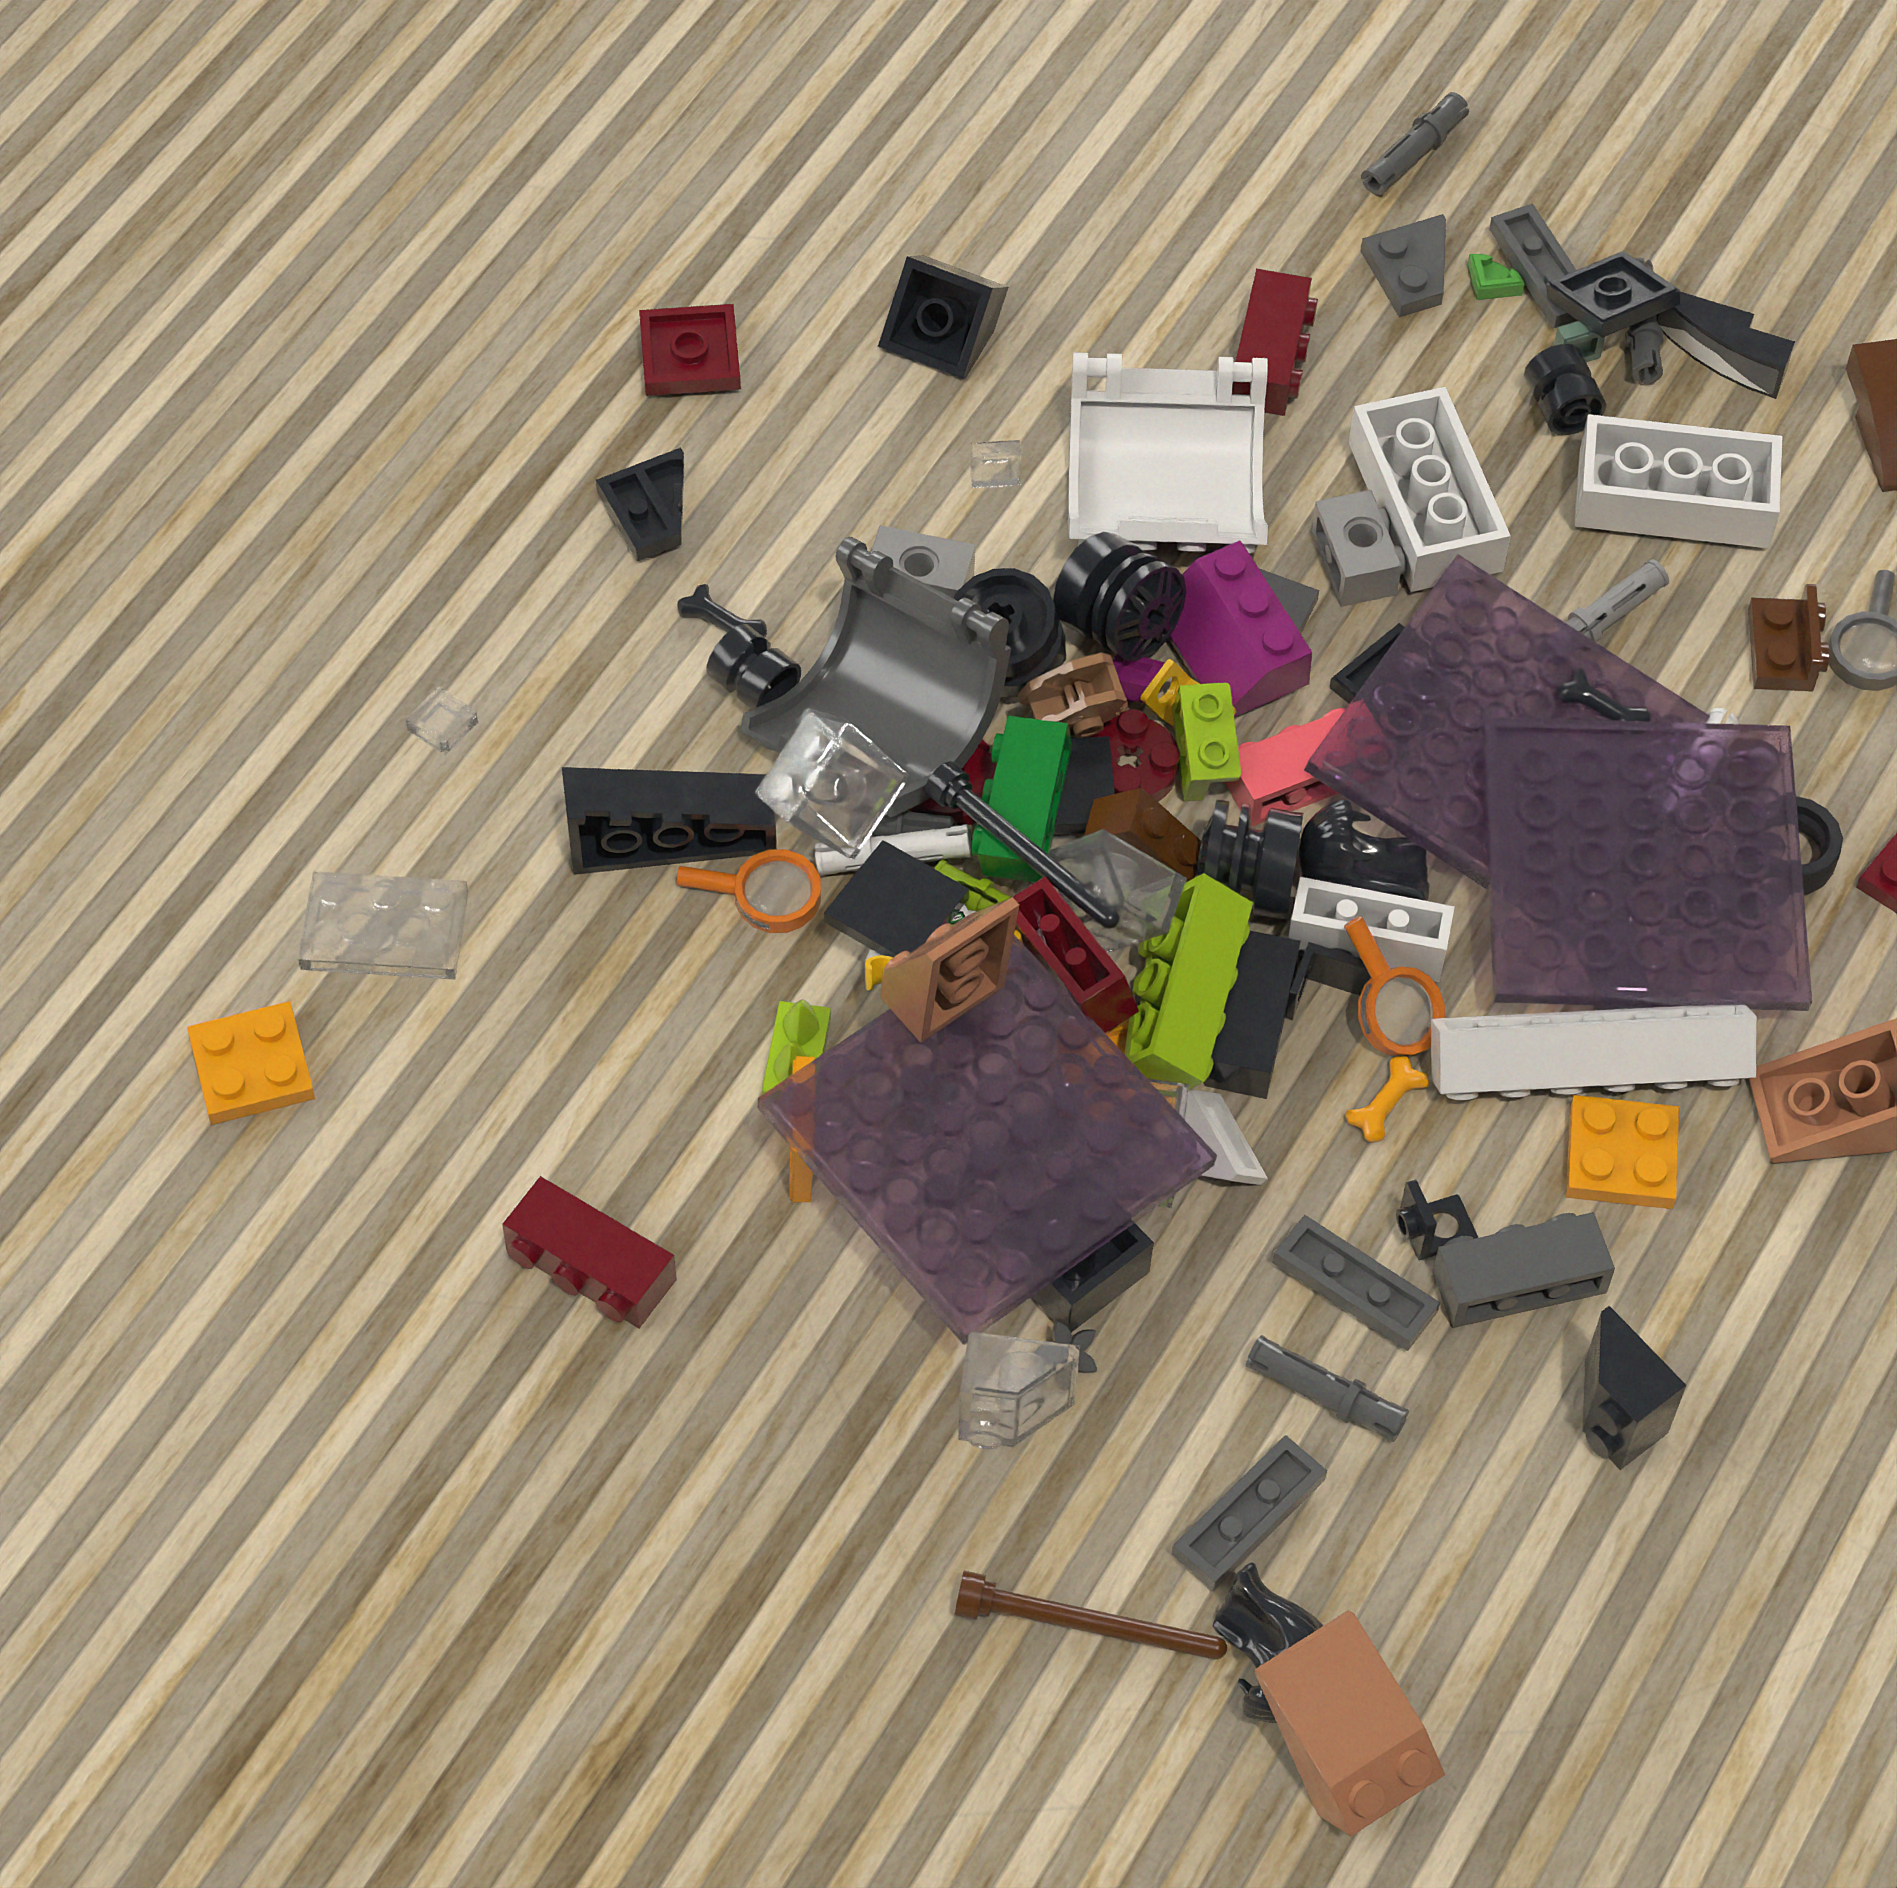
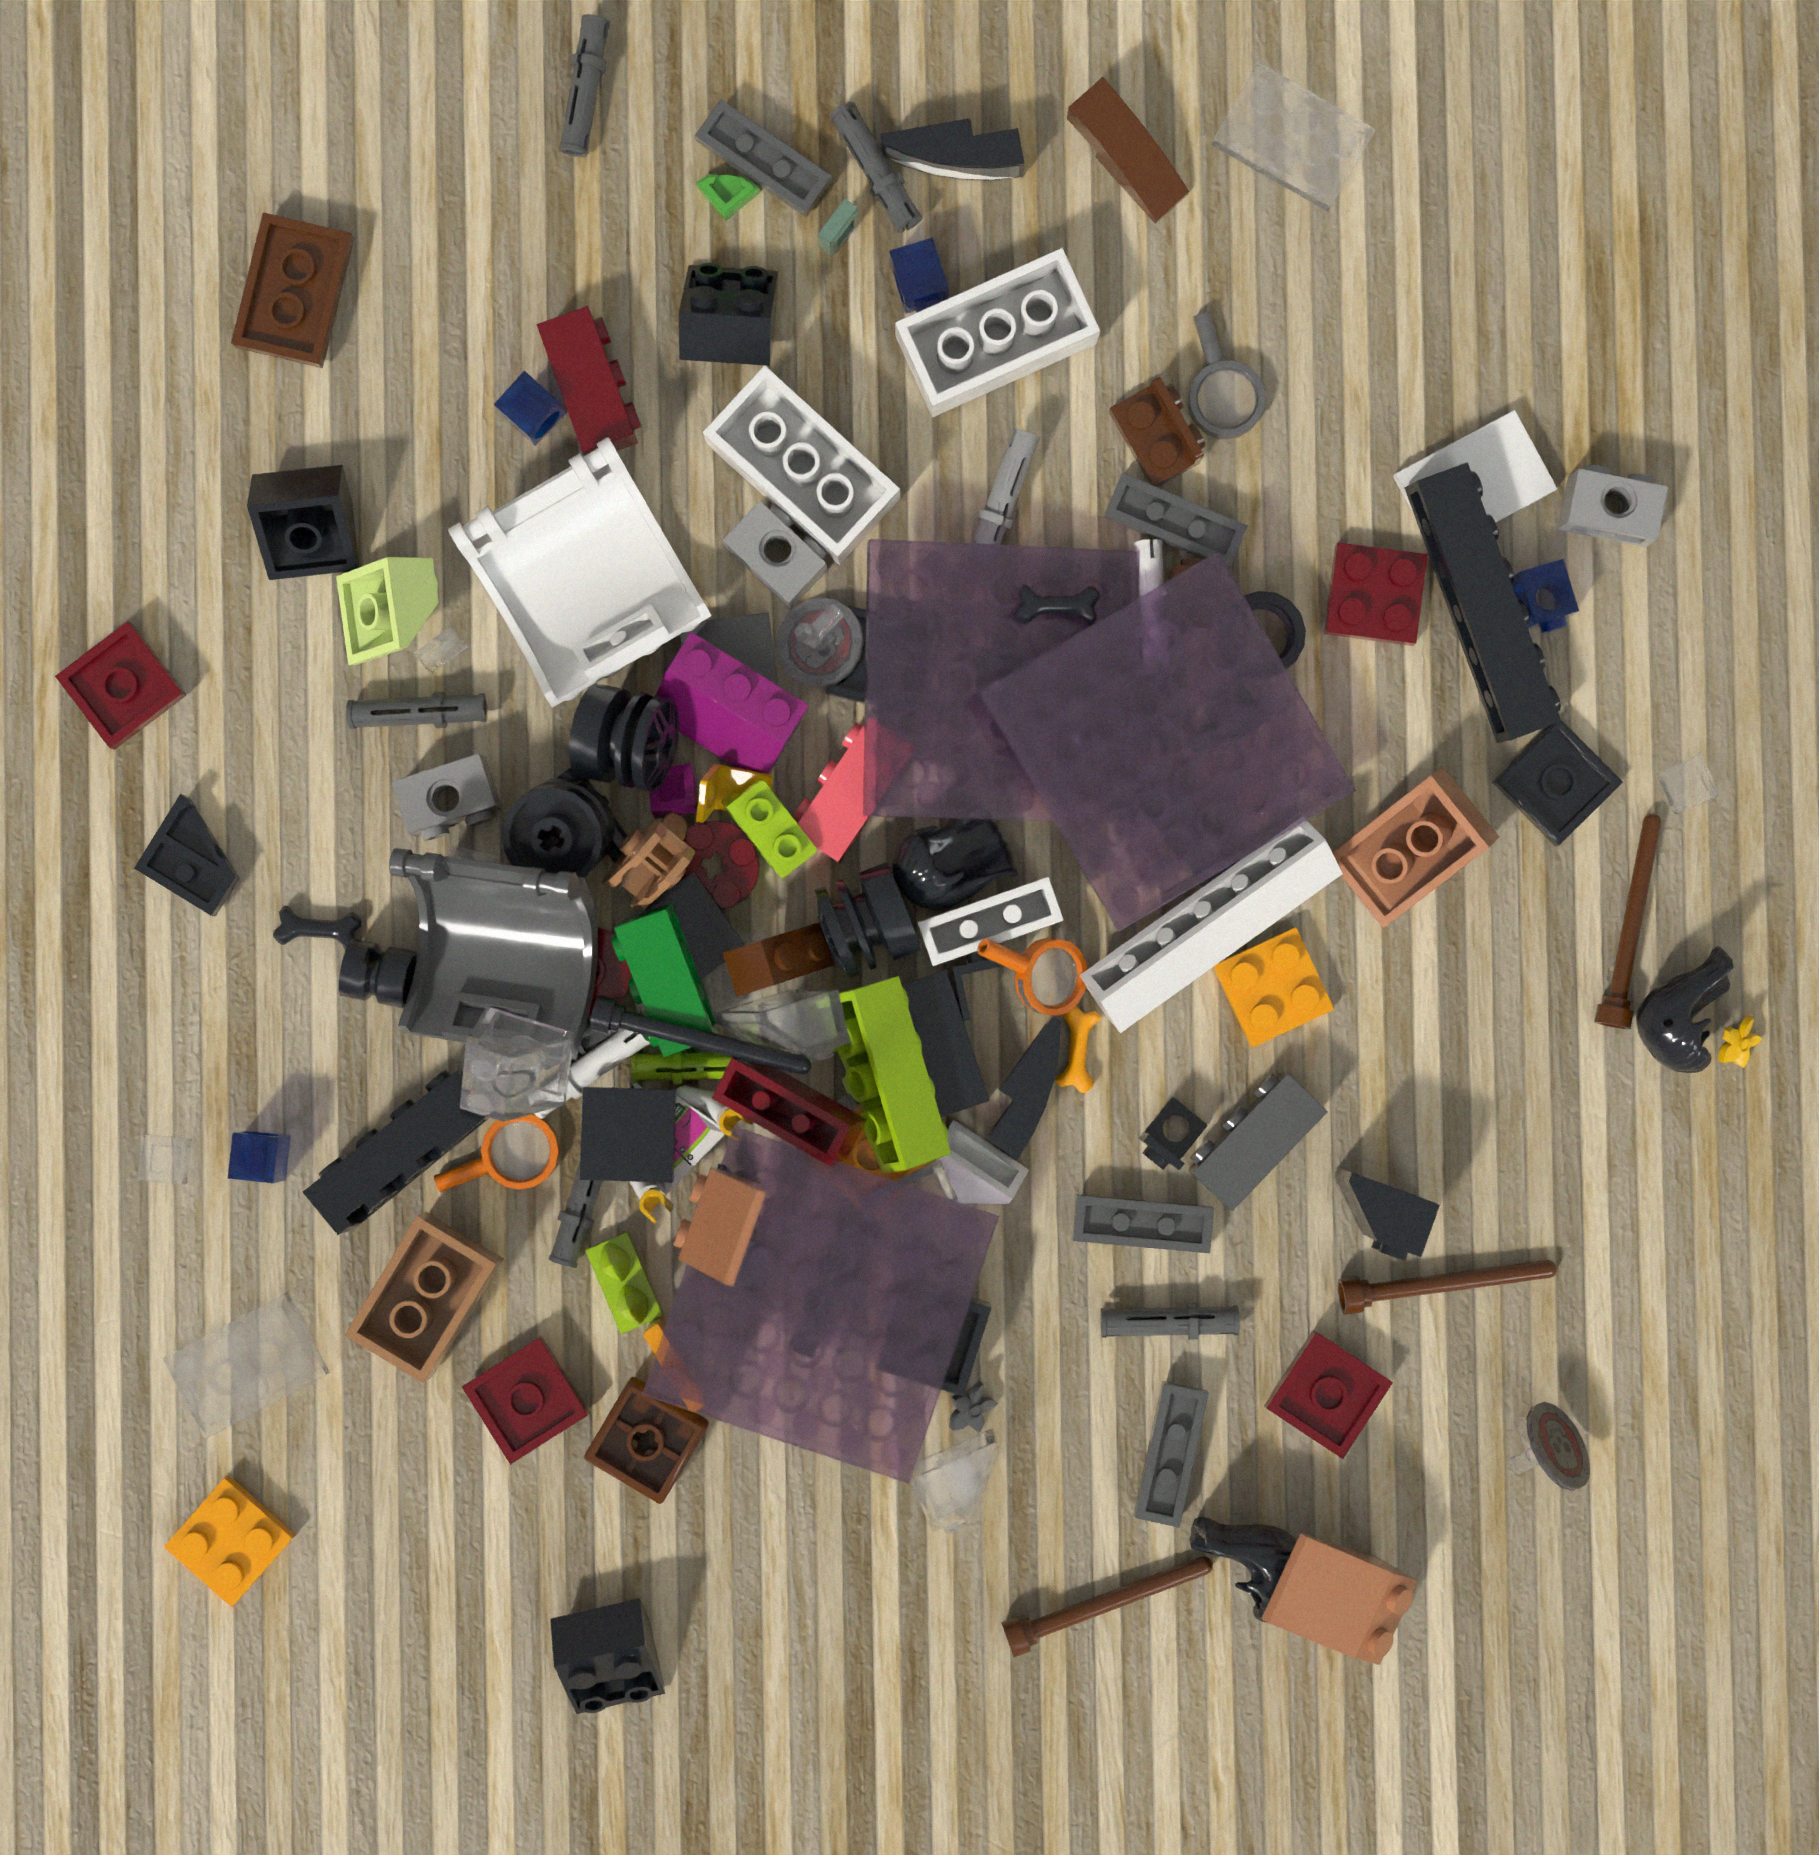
camera: 30 degrees left, 30 degrees up
(532, 754) = (259, 1156): none -> clear blue brick
(537, 1367) = (606, 1656): none -> black slope
(589, 1253) = (583, 1548): dark red brick -> none
(600, 944) = (424, 1297): none -> medium nougat brick
(627, 1096) = (525, 1400): none -> dark red plate
(738, 1166) = (656, 1468): none -> reddish brown brick
(762, 988) = (575, 1221): none -> dark grey pin
(956, 507) = (470, 709): none -> dark grey pin
(973, 402) = (385, 605): none -> yellowish green slope
(1055, 156) = (292, 290): none -> reddish brown plate
(1206, 326) = (529, 408): none -> clear blue brick
(1312, 1098) = (1029, 1089): none -> black slope
(1352, 633) = (820, 642): none -> clear shield
(1409, 264) = (652, 220): dark grey wing -> none
(1431, 354) = (728, 314): none -> black slope
(1455, 1550) = (1328, 1394): none -> dark red plate
(1547, 1475) = (1358, 1294): none -> reddish brown piece
(1564, 388) = (854, 288): black wheel -> none
(1613, 294) = (844, 170): black tile -> none
(1634, 397) = (918, 275): none -> clear blue brick
(1676, 1725) = (1553, 1444): none -> shield
(1742, 691) = (1174, 520): none -> dark grey plate

